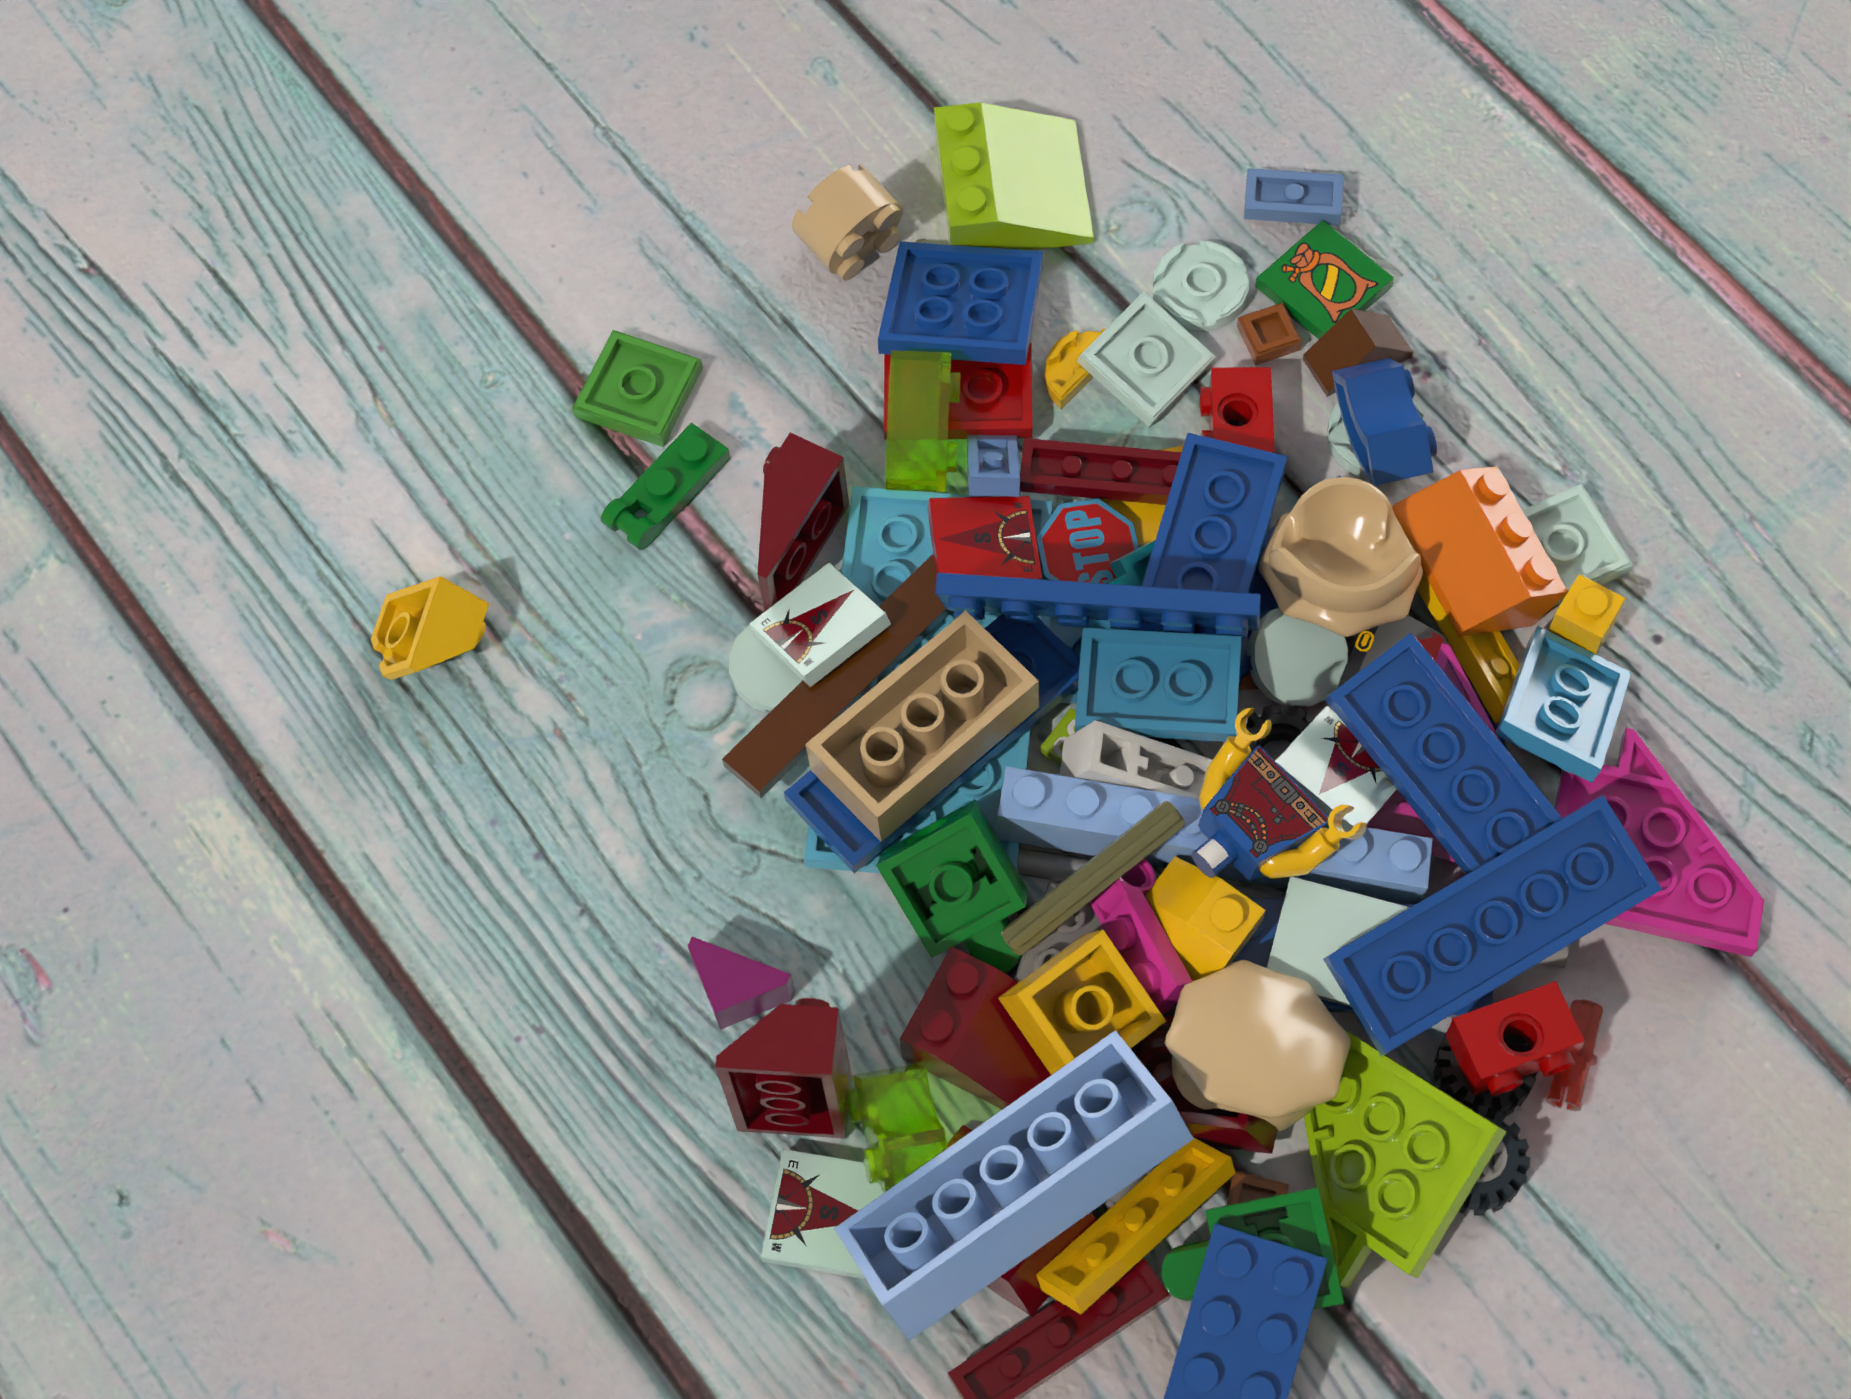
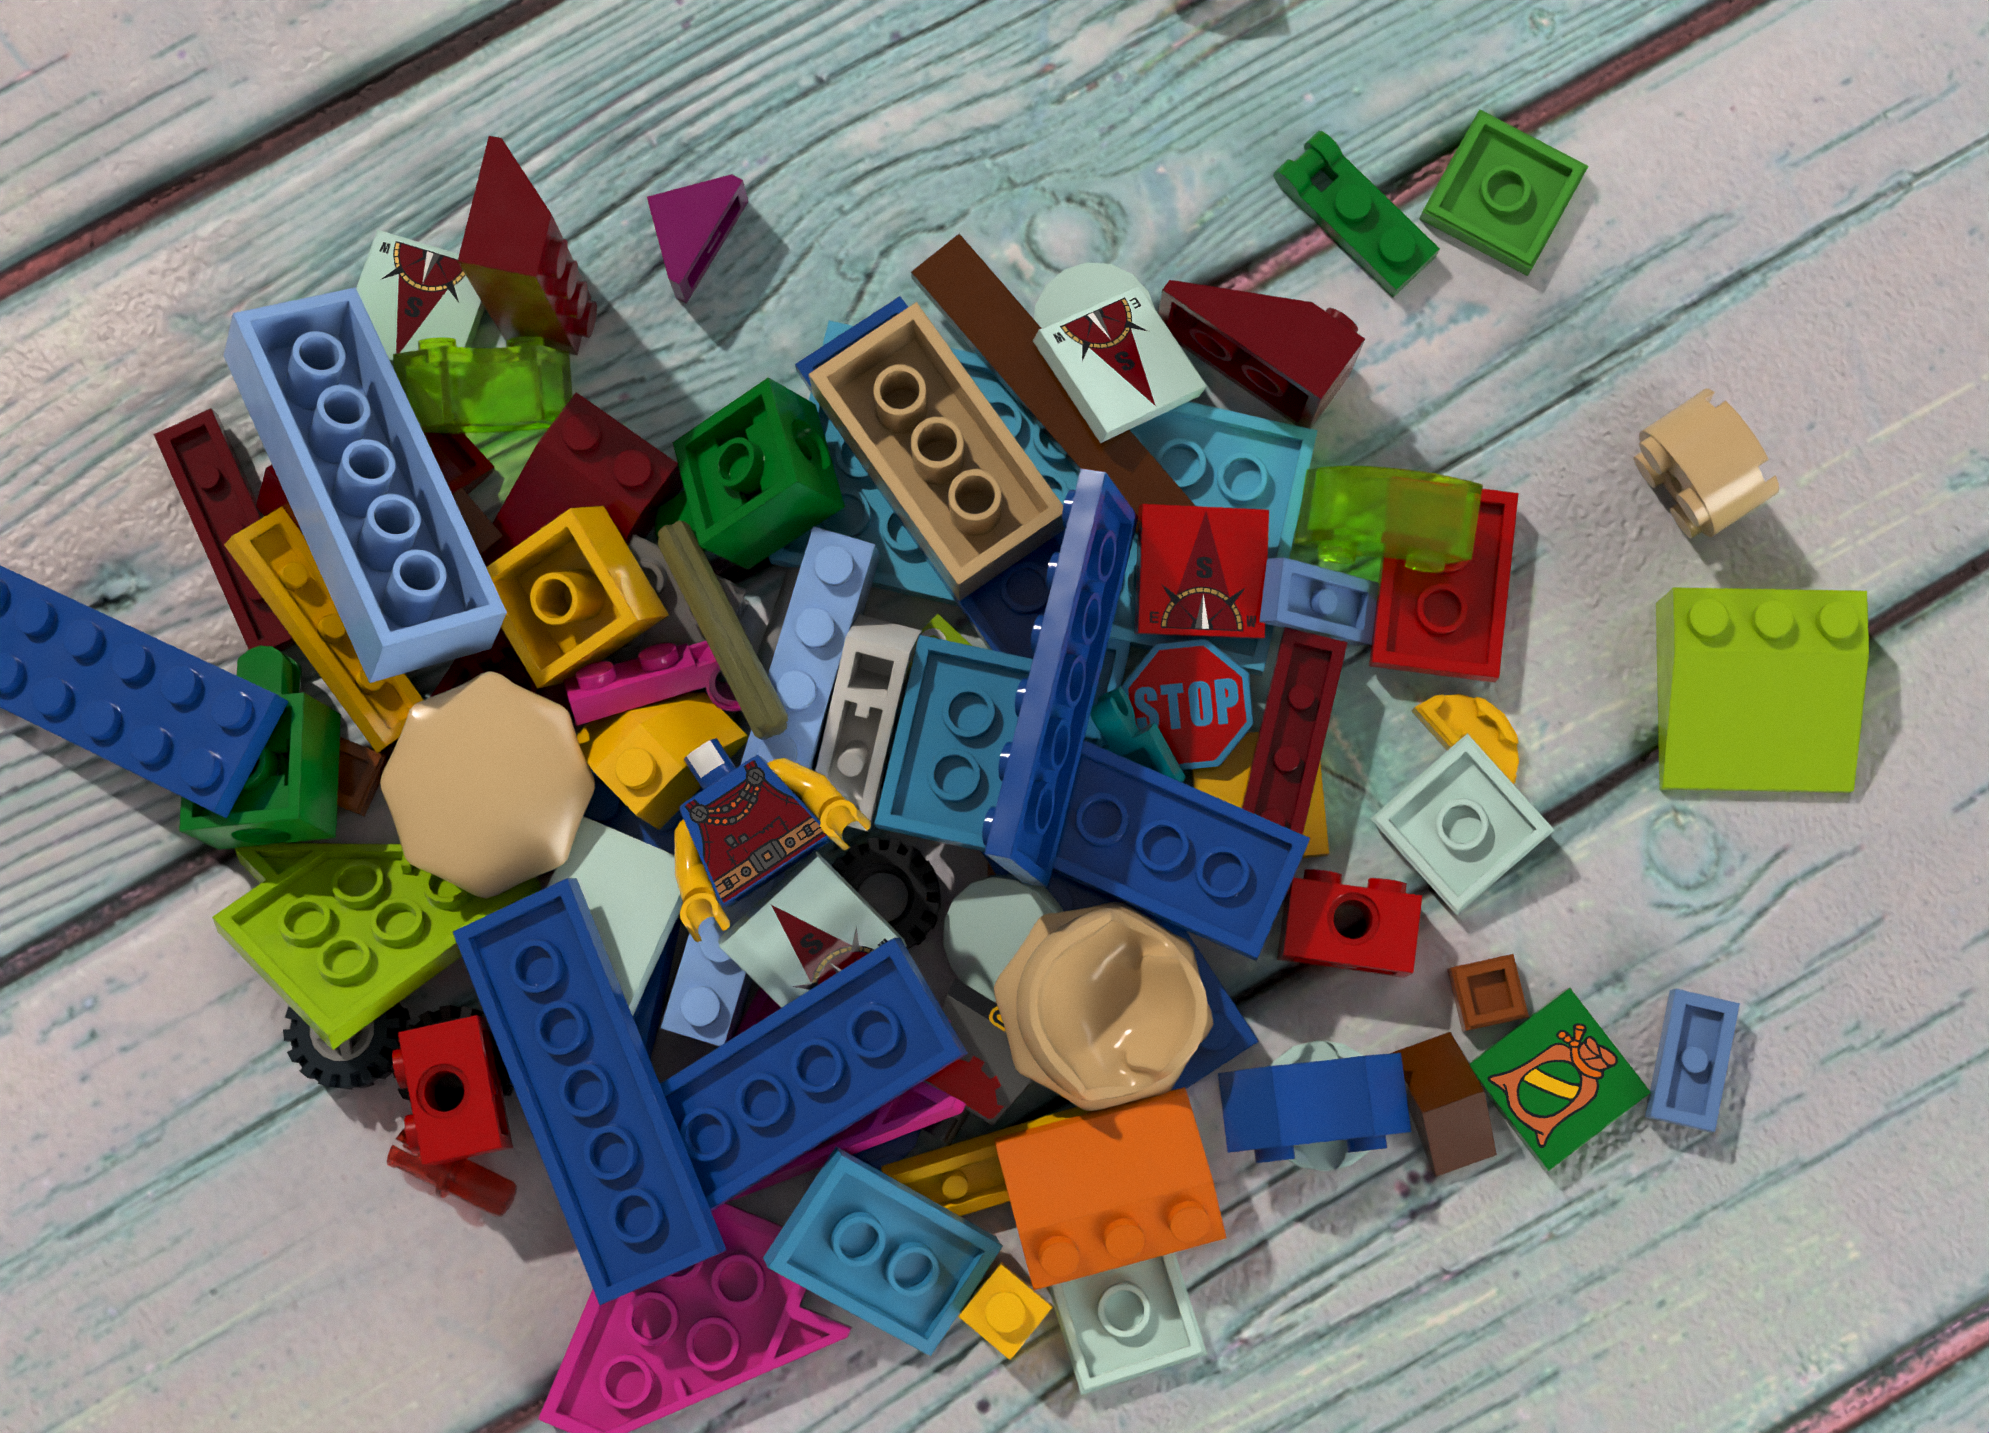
camera: 95 degrees right, 15 degrees up
(962, 302) = (1566, 595): blue plate -> none
(1201, 285) = (1572, 916): light aqua tile -> none

